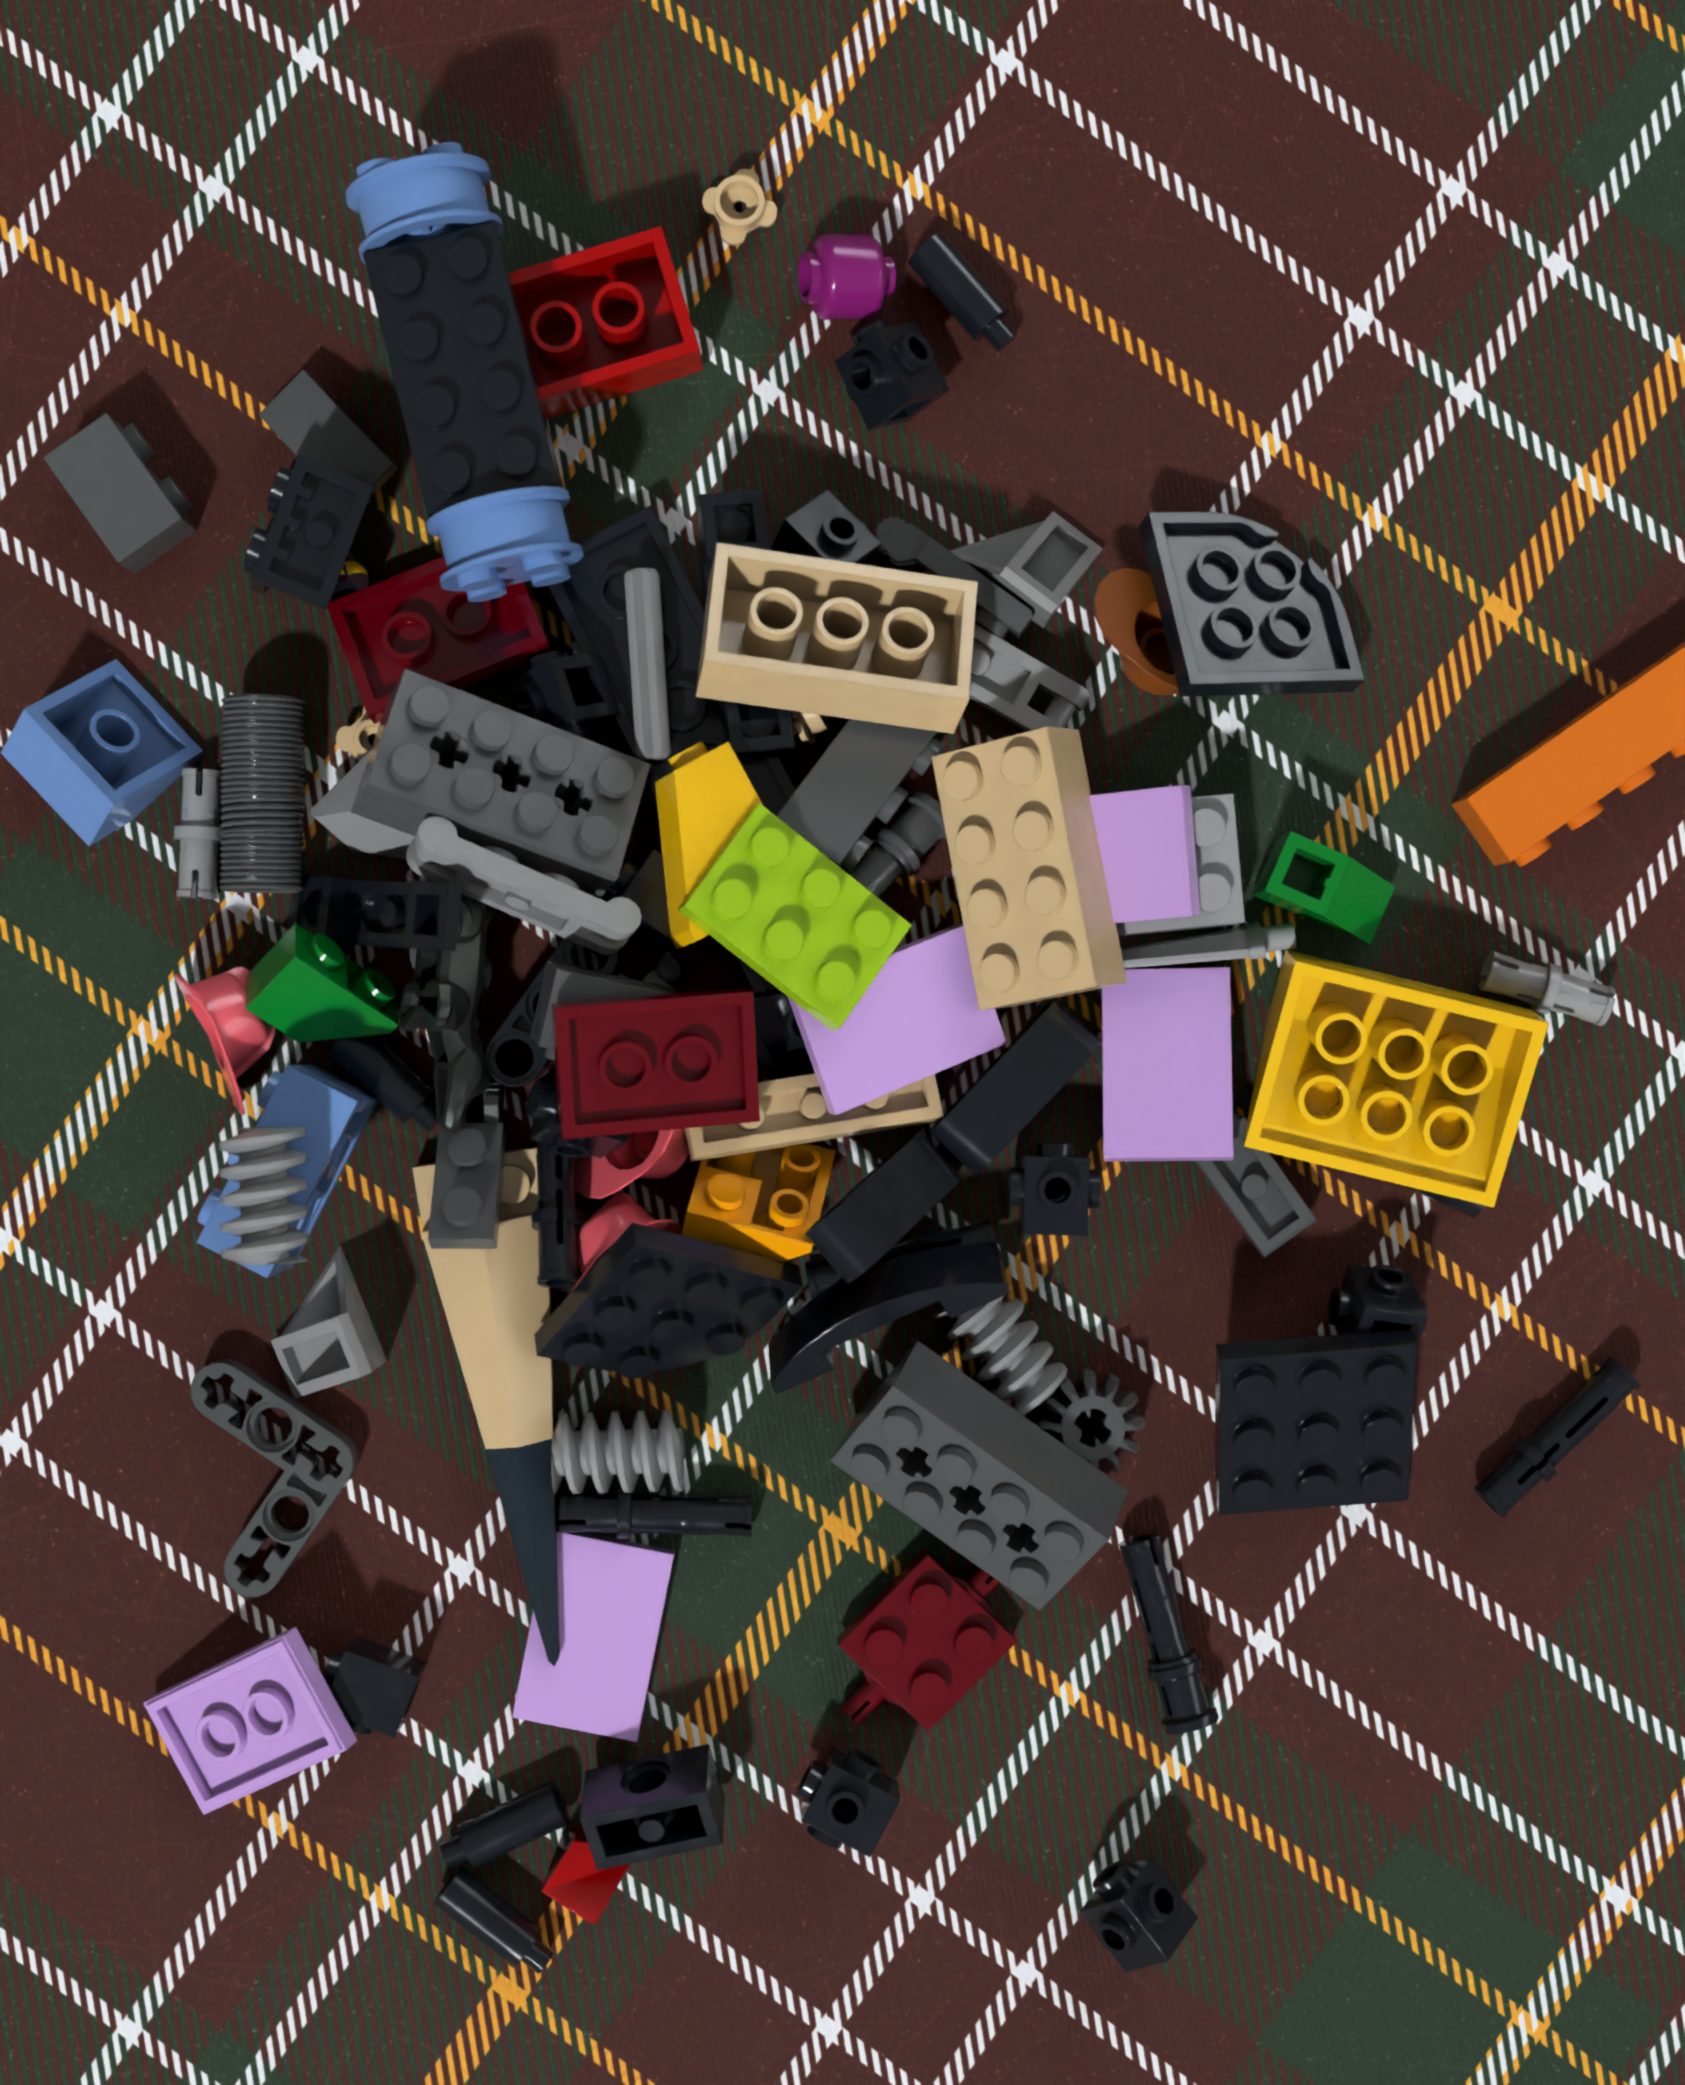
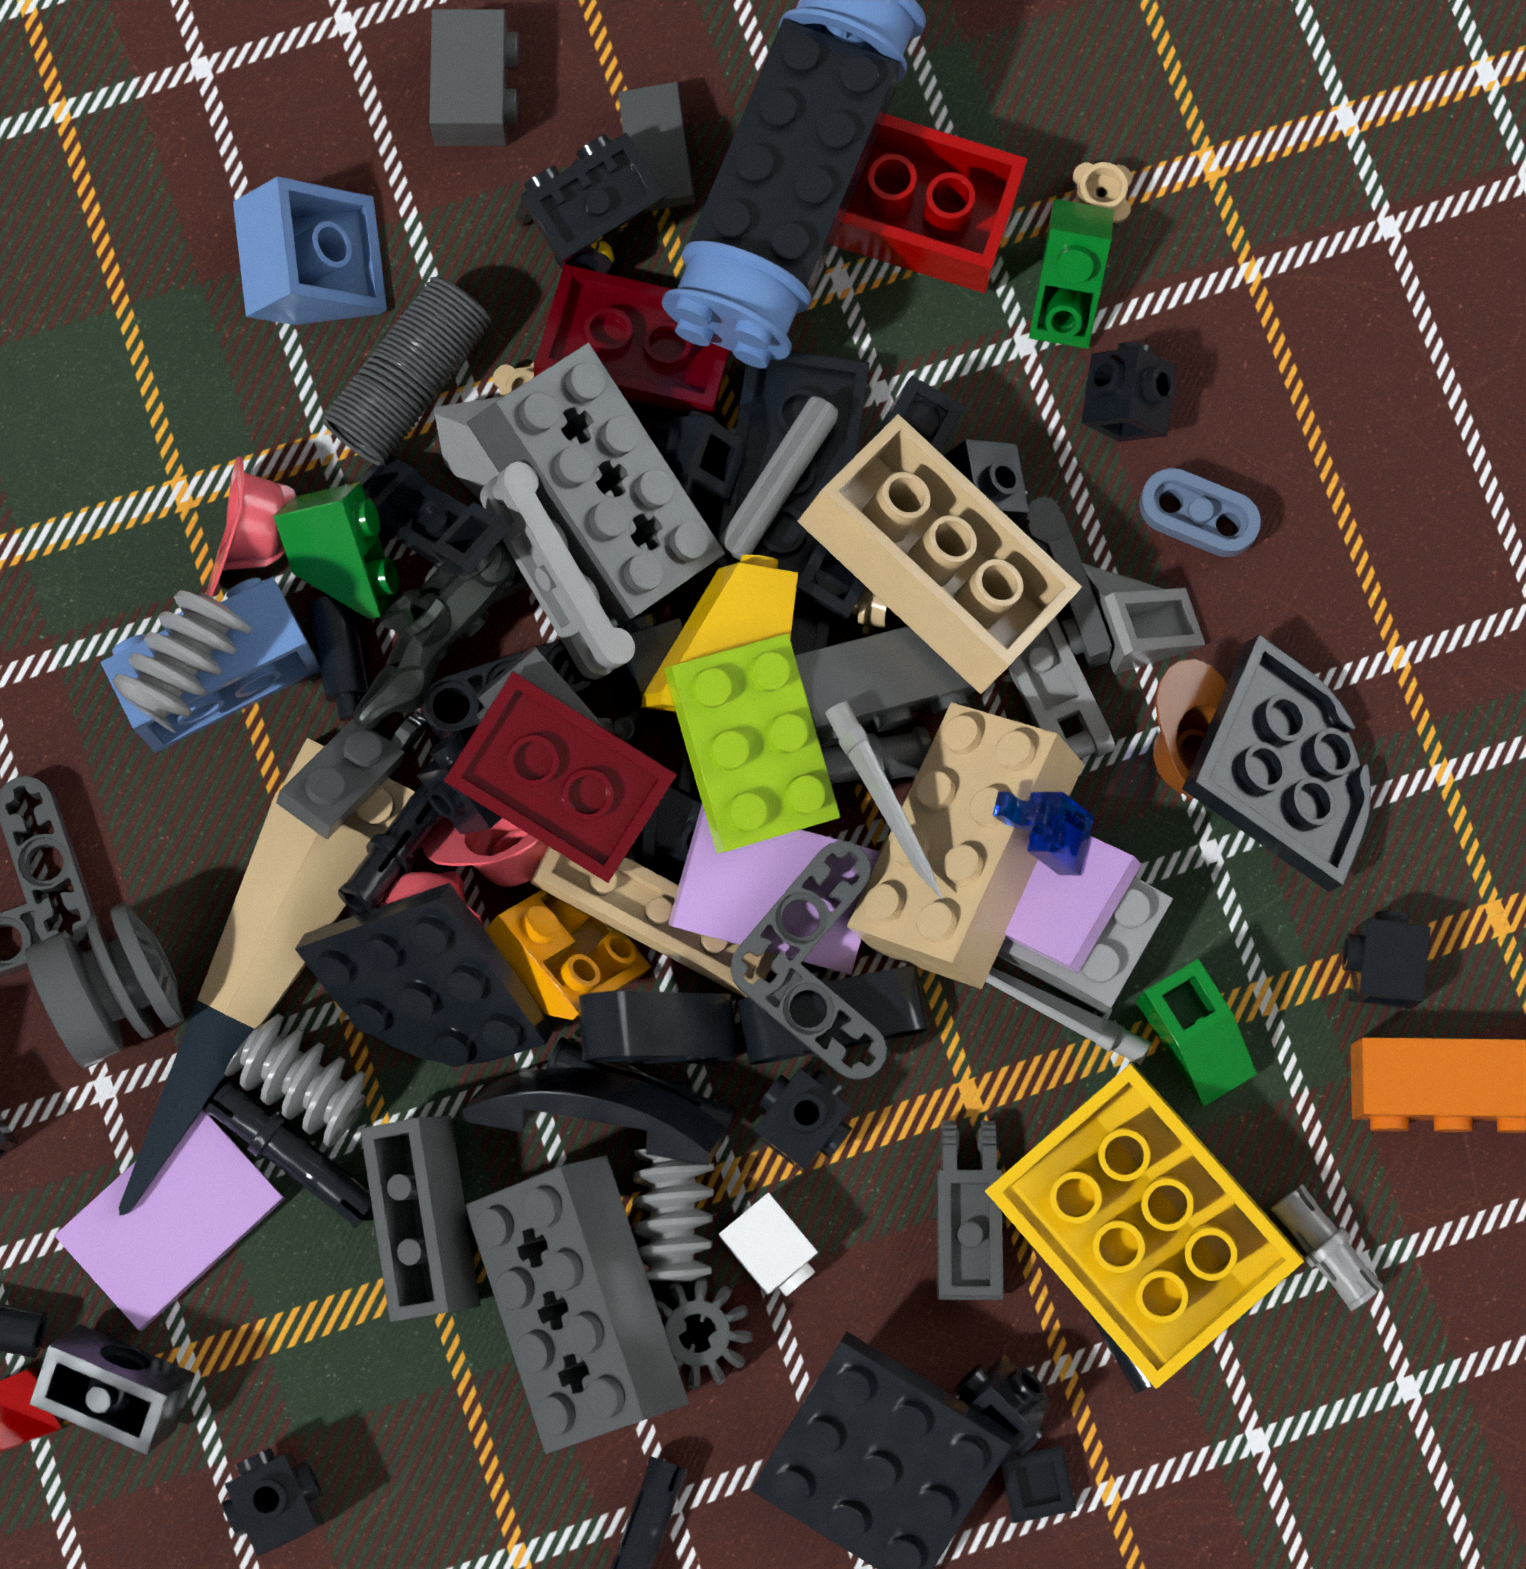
camera: 30 degrees right, 10 degrees down
(199, 833) = (335, 369): light grey pin -> none
(329, 1334) = (142, 825): light grey slope -> none
(397, 1507) = (104, 985): none -> dark grey wheel
(766, 299) = (1071, 273): none -> green slope
(800, 1495) = (420, 1217): none -> dark grey brick
(845, 276) = (1146, 297): magenta head -> none
(887, 858) = (858, 749): none -> light grey bar
(924, 1641) = (432, 1420): dark red plate -> none
(962, 291) = (1231, 371): black cylinder -> none
(967, 1085) = (795, 978): none -> dark grey beam
(1018, 432) = (1200, 508): none -> sand blue plate
(1098, 1313) = (770, 1247): none -> white brick
(1099, 807) = (1055, 824): none -> clear blue plate
(1168, 1066) = (968, 1084): lavender tile -> none
(1439, 714) = (1387, 960): none -> black brick
(1447, 1345) = (1037, 1484): none -> black tile

